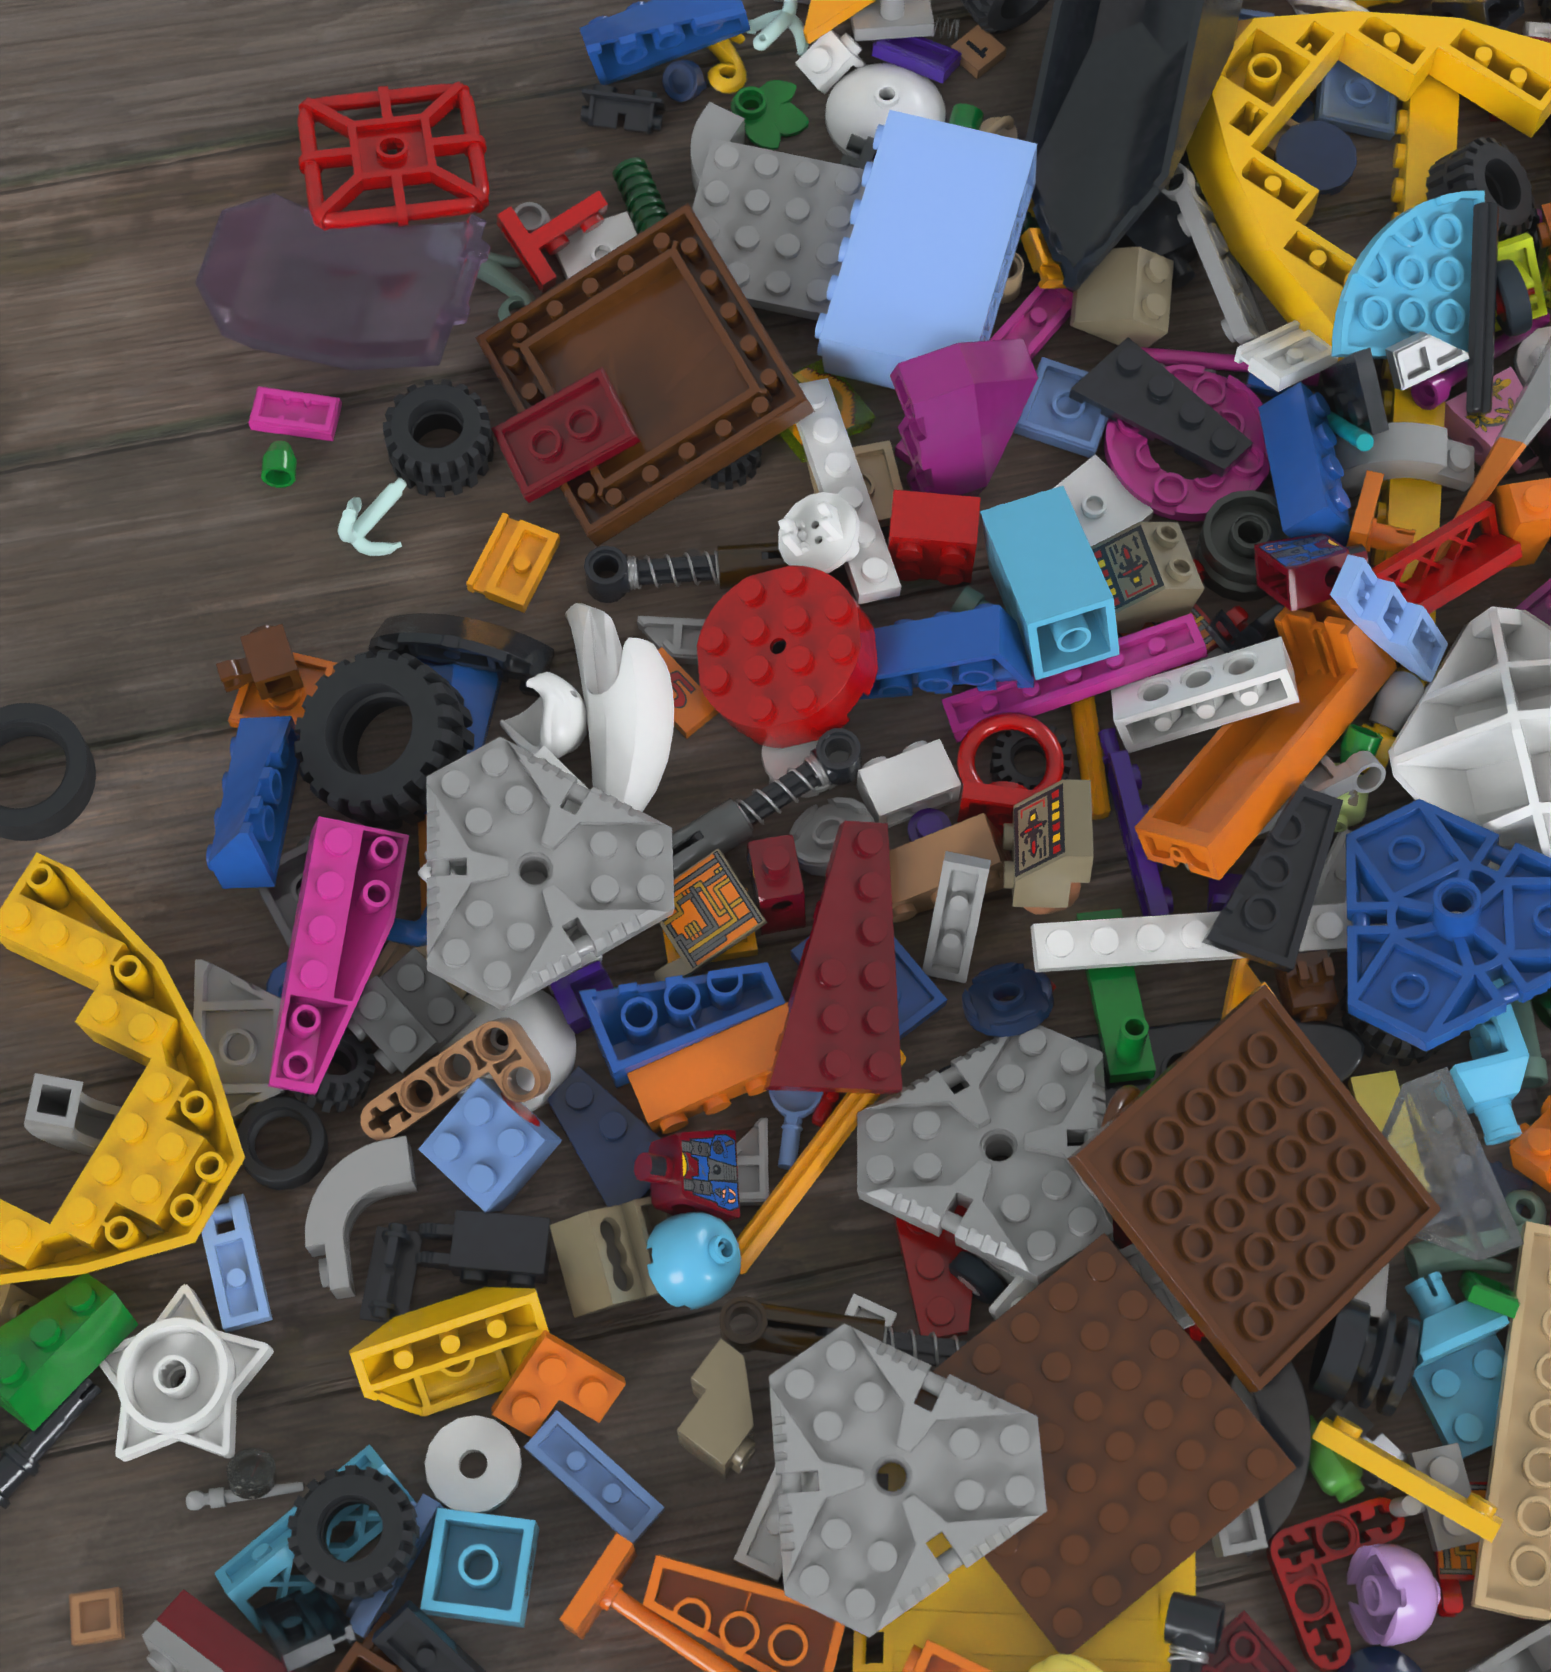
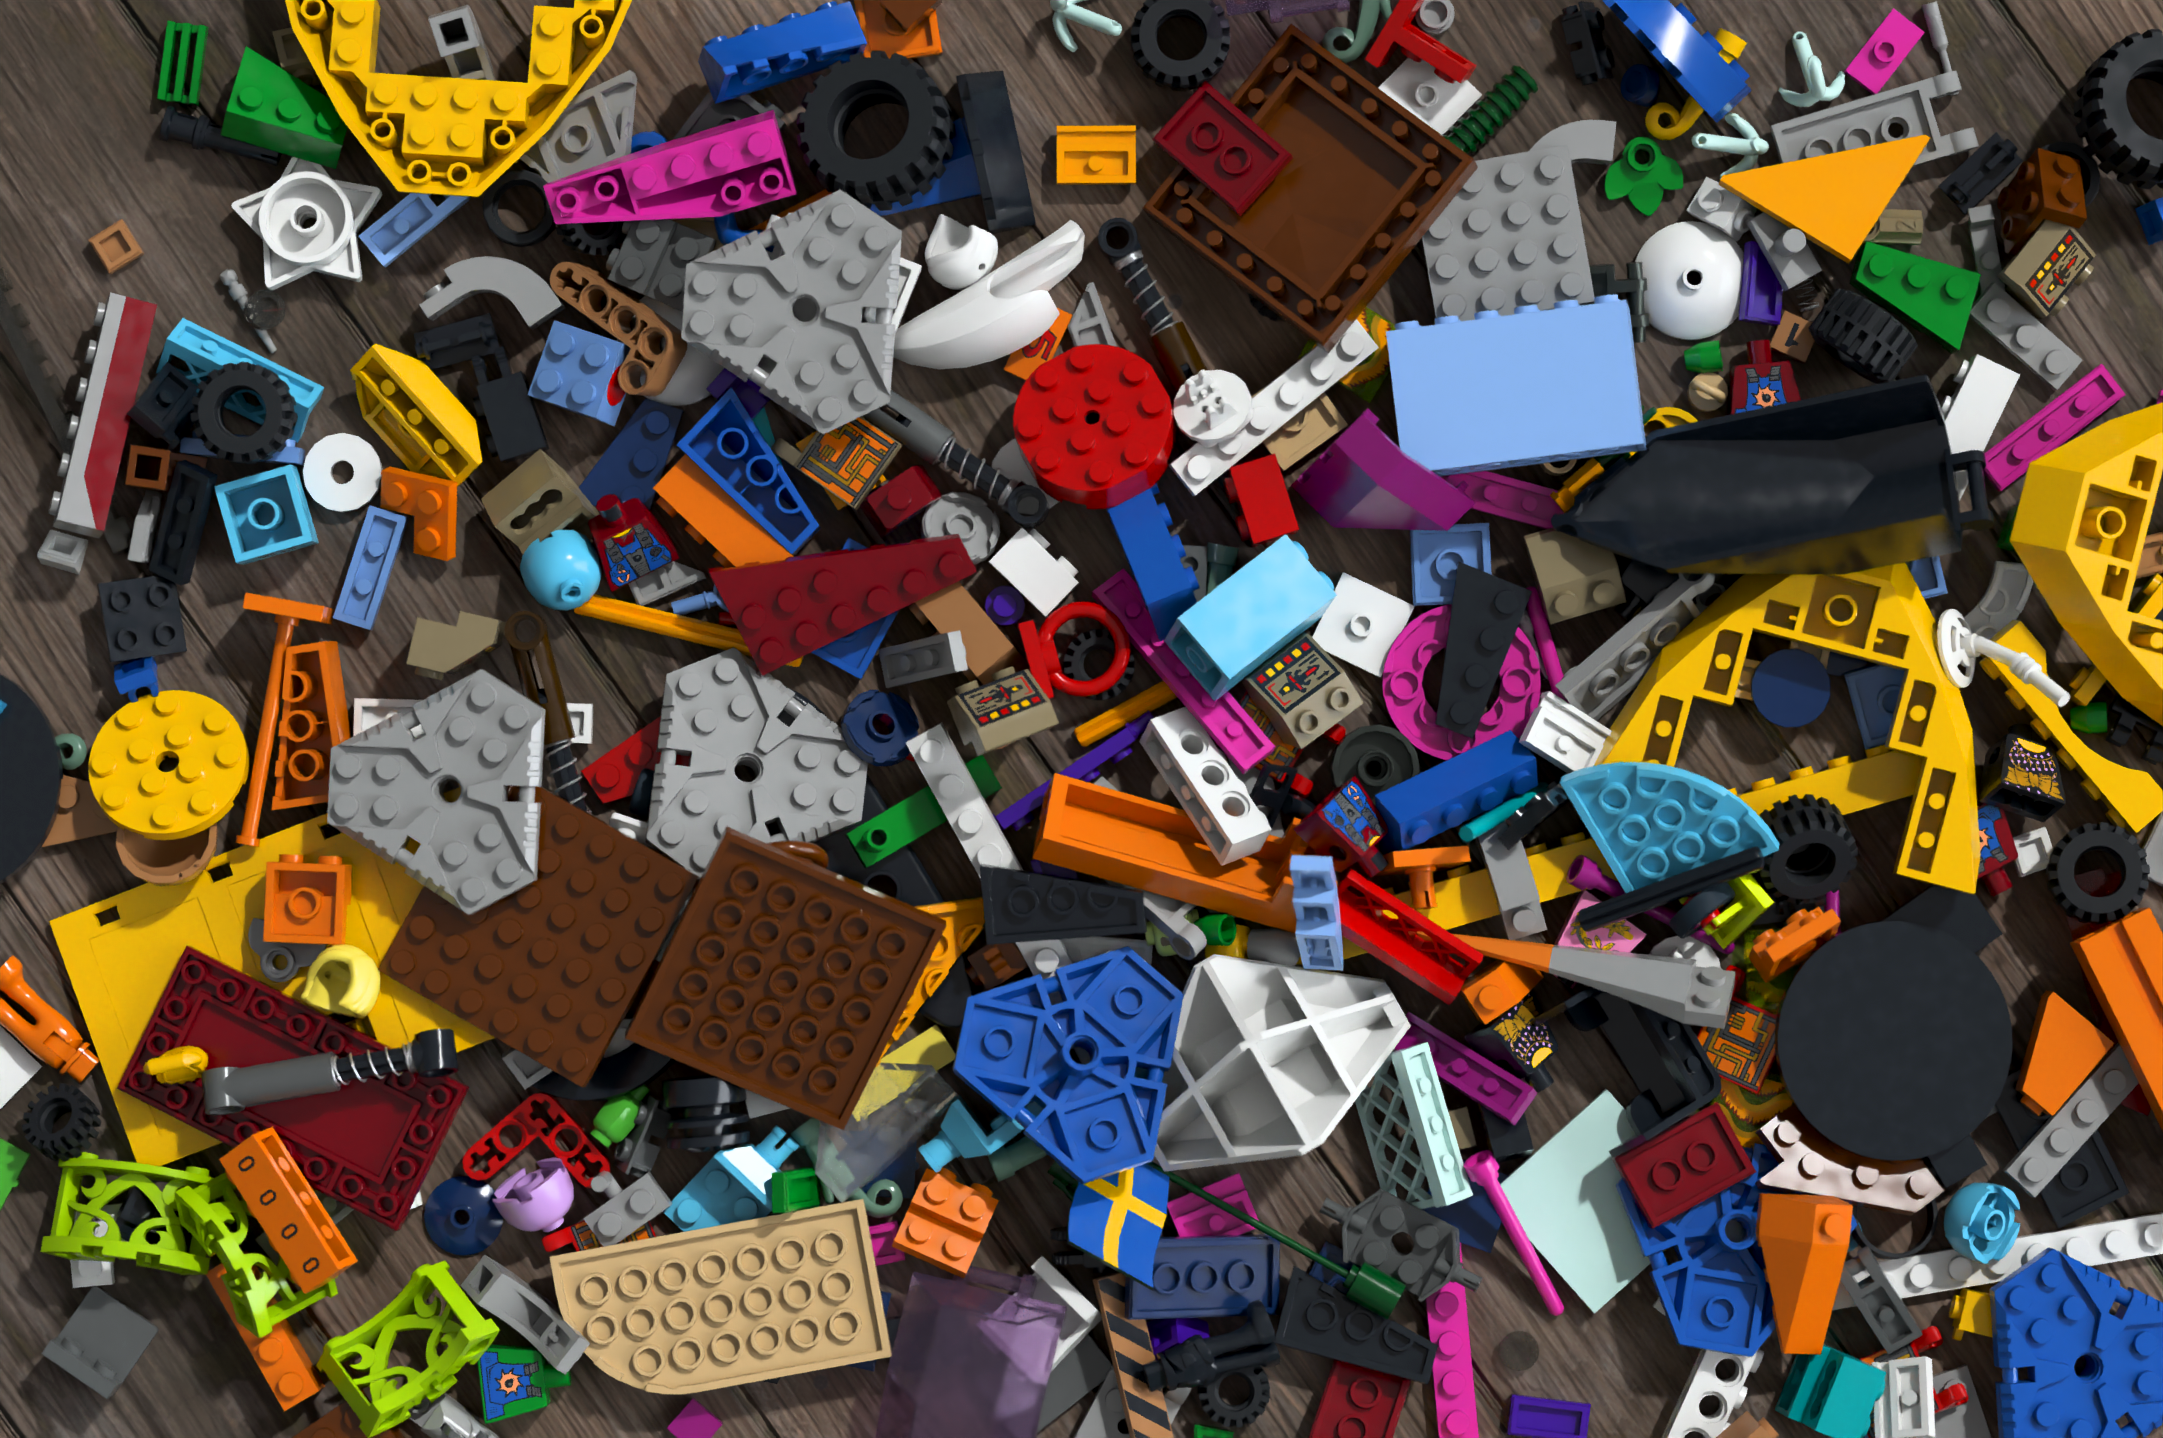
camera: 70 degrees right, 20 degrees up
(1009, 85) = (1761, 381): none -> torso
(1420, 359) = (1598, 854): tile -> none
(1471, 1512) = (610, 1226): yellow plate -> none

